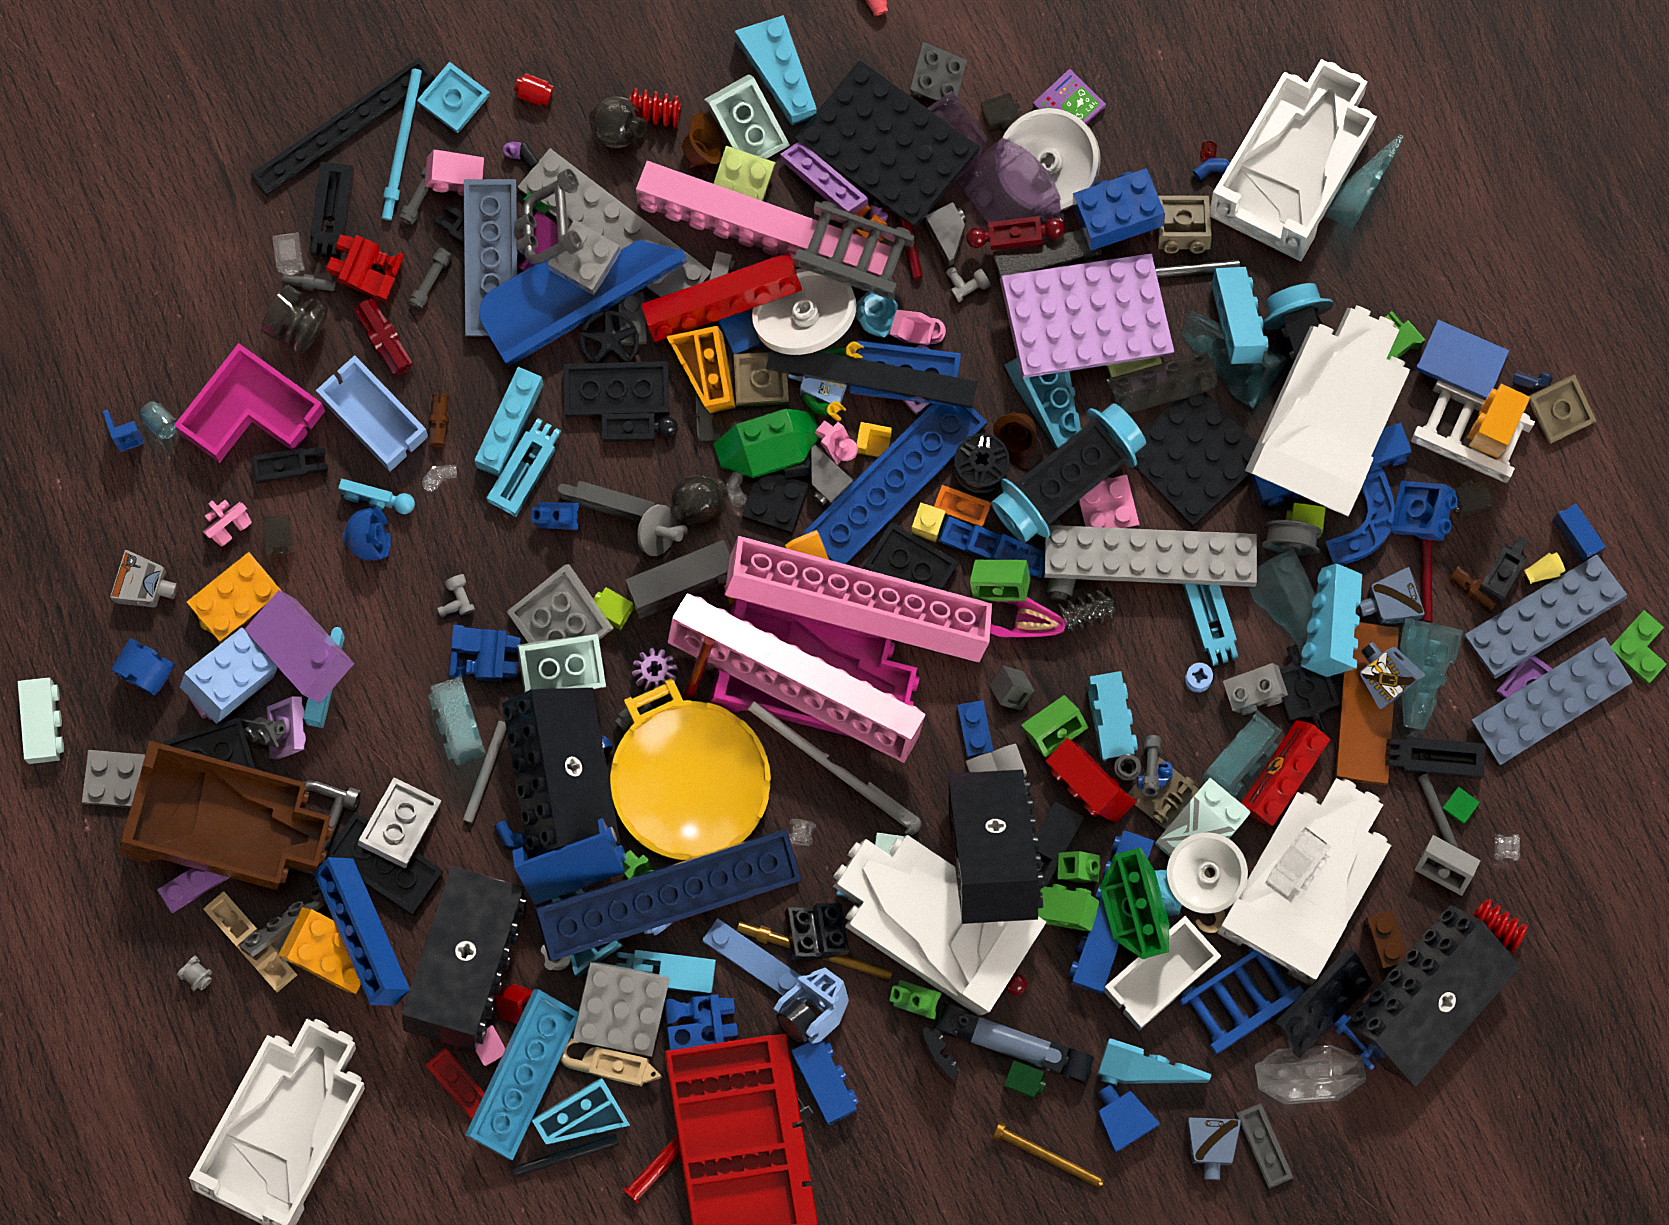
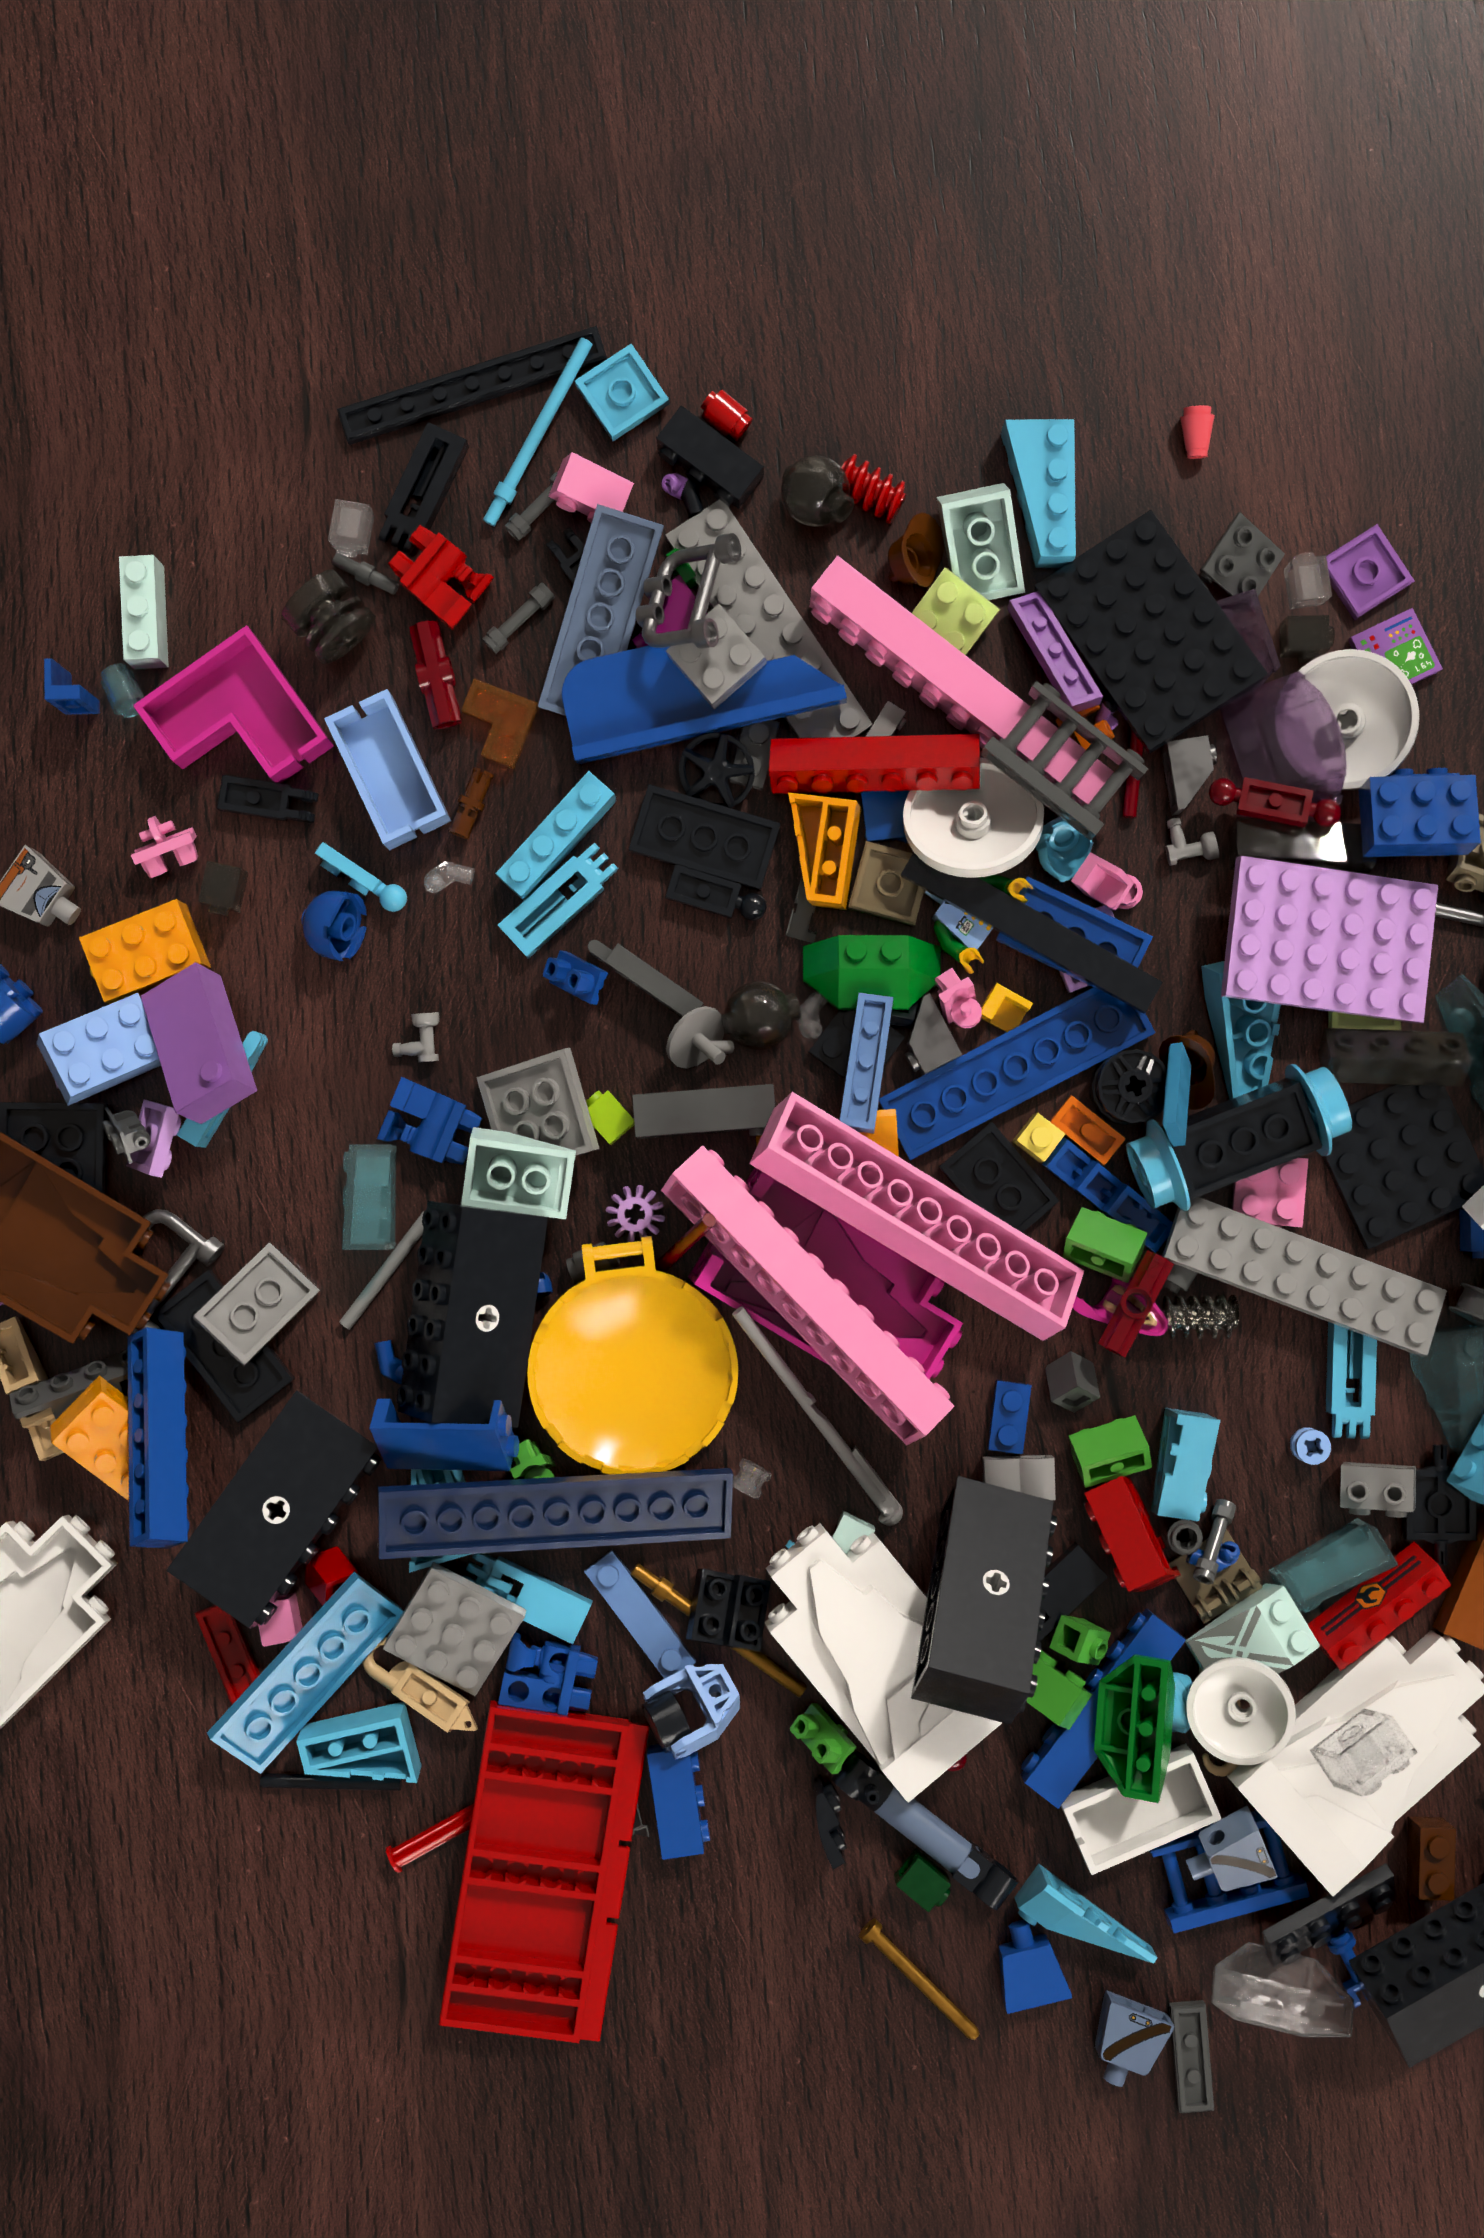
camera: 20 degrees right, 10 degrees up
(157, 359) = (143, 612): none -> light aqua brick
(446, 348) = (510, 720): none -> clear orange plate
(531, 123) = (709, 458): none -> black brick
(785, 503) = (866, 1062): none -> medium blue plate
(988, 73) = (1307, 581): none -> clear brick
(1012, 454) = (1177, 1094): none -> dark azure tile
(1028, 54) = (1367, 572): none -> medium lavender tile
(1033, 627) = (1147, 1283): none -> dark red piece
(1237, 976) = (1233, 1853): none -> sand blue torso

